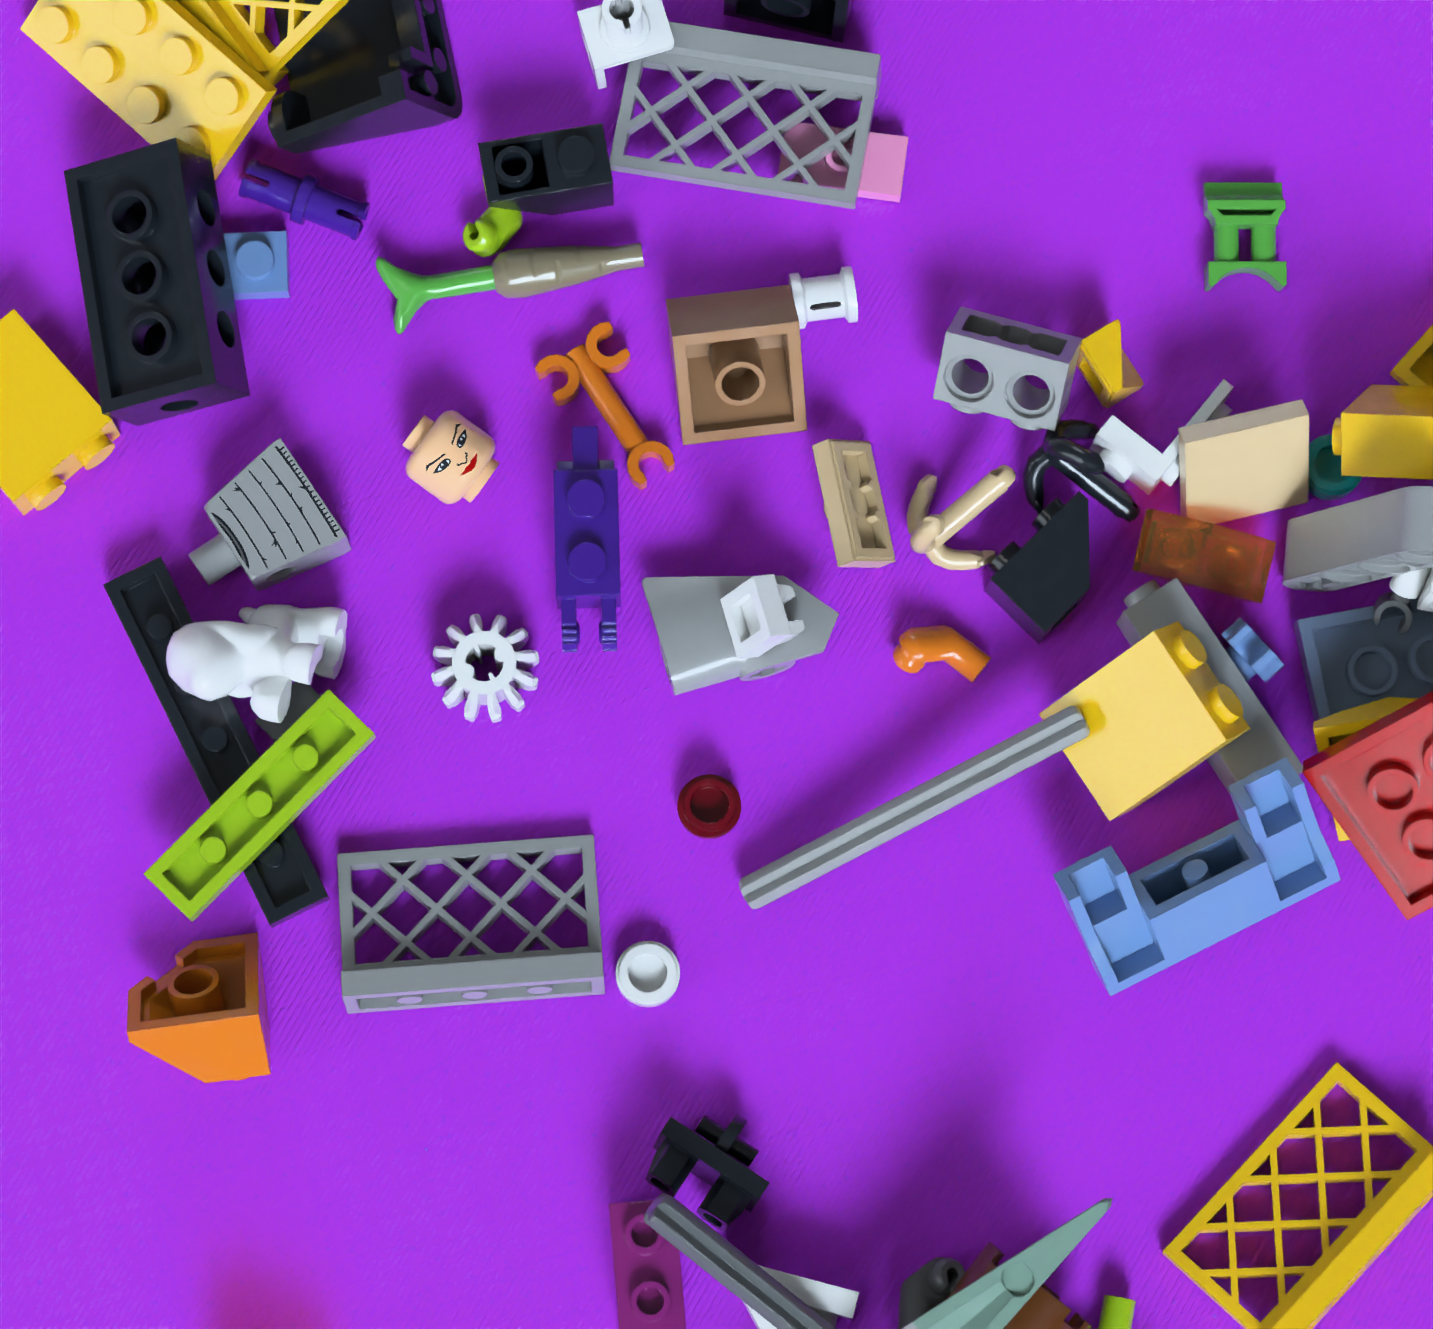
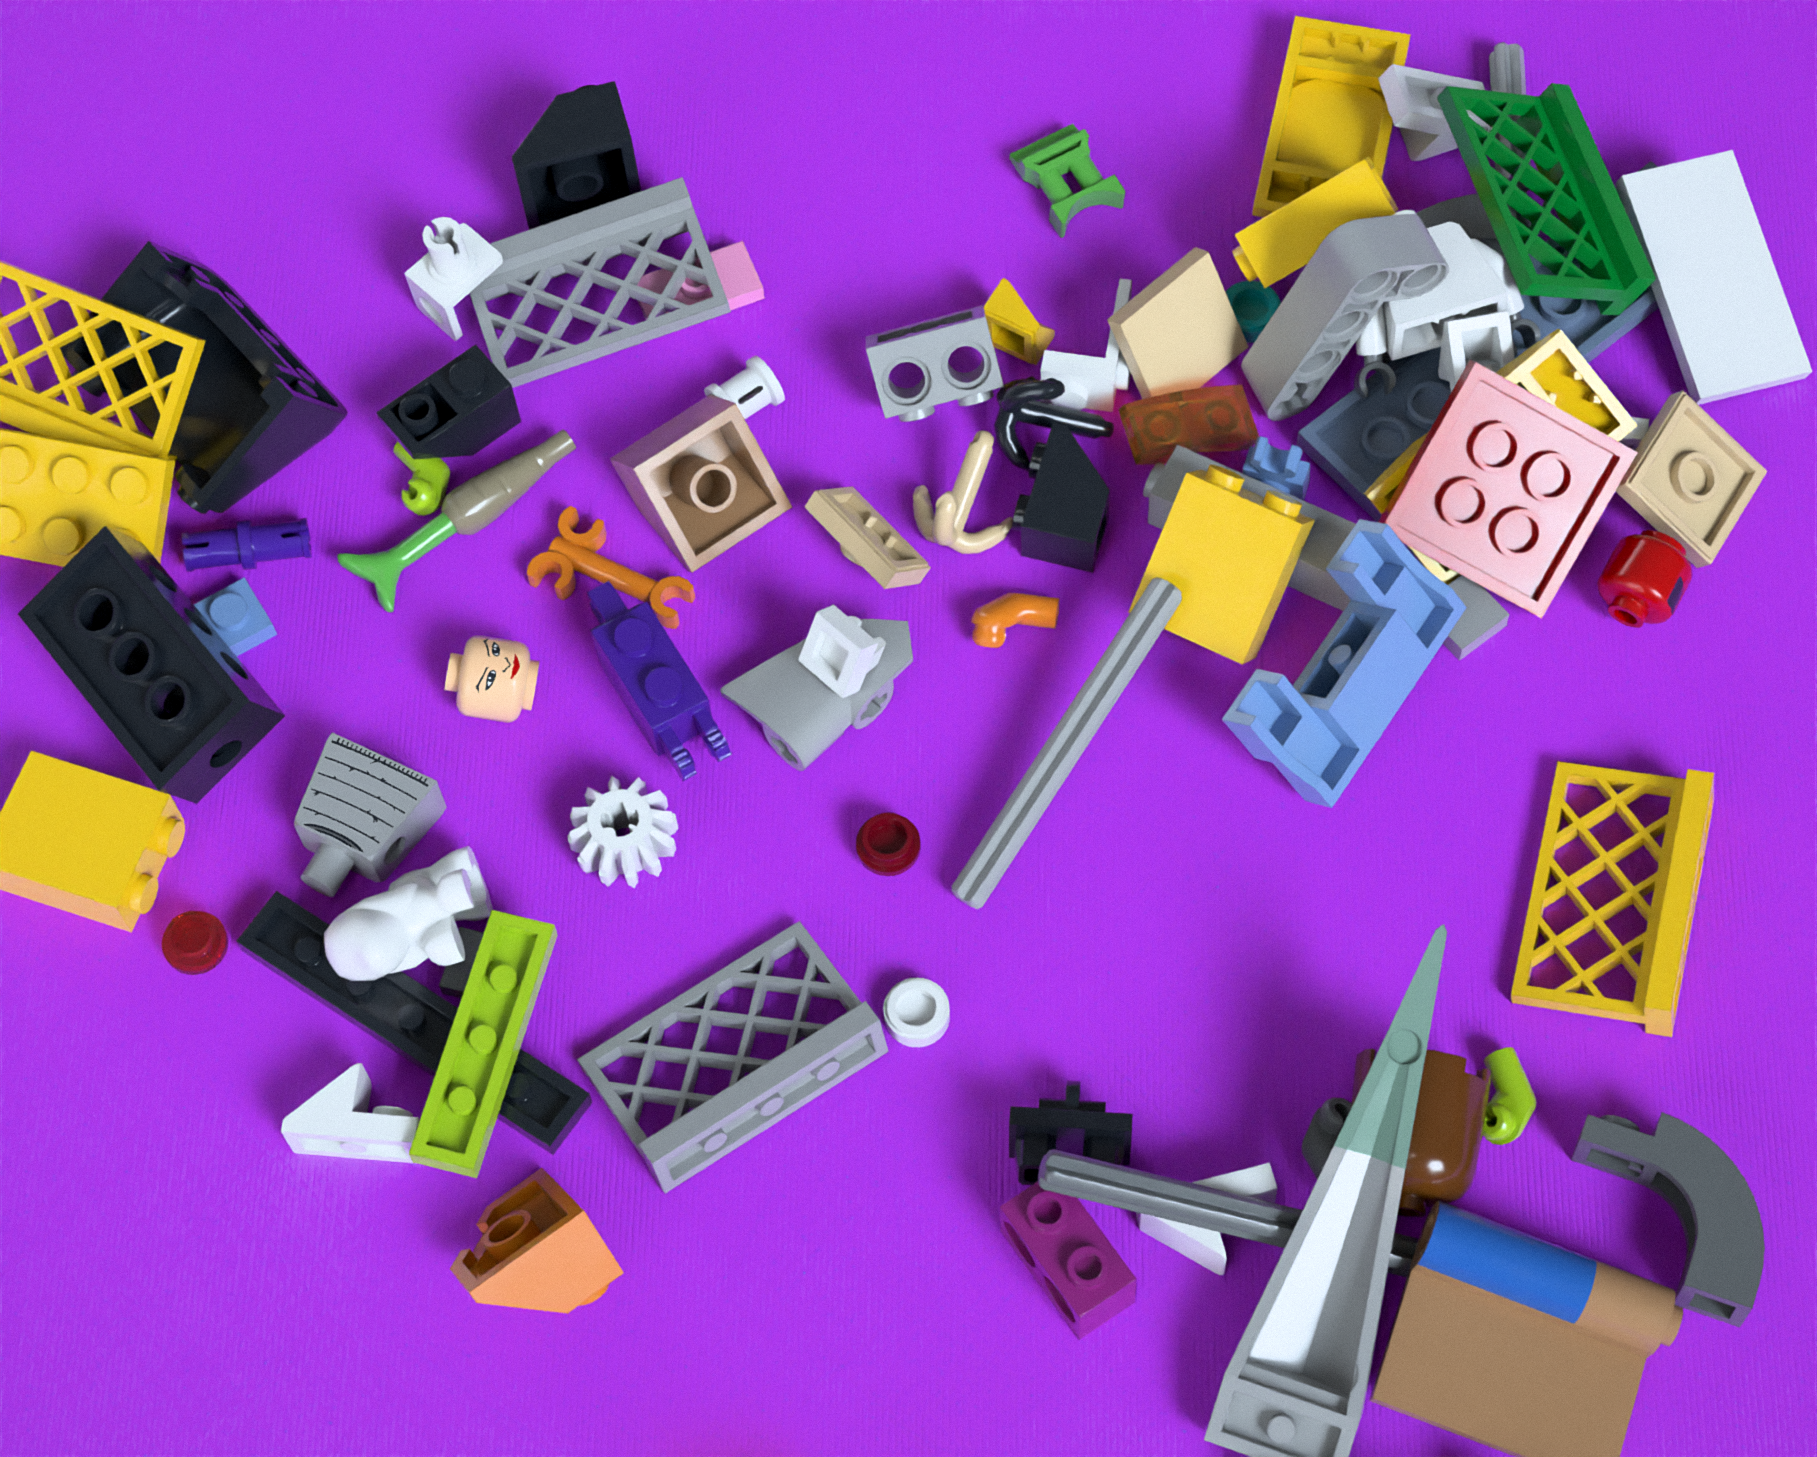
camera: 20 degrees left, 15 degrees down
(70, 560) = (194, 942): none -> clear red plate
(107, 798) = (339, 1126): none -> white slope
(1356, 886) = (1479, 620): none -> light grey tile

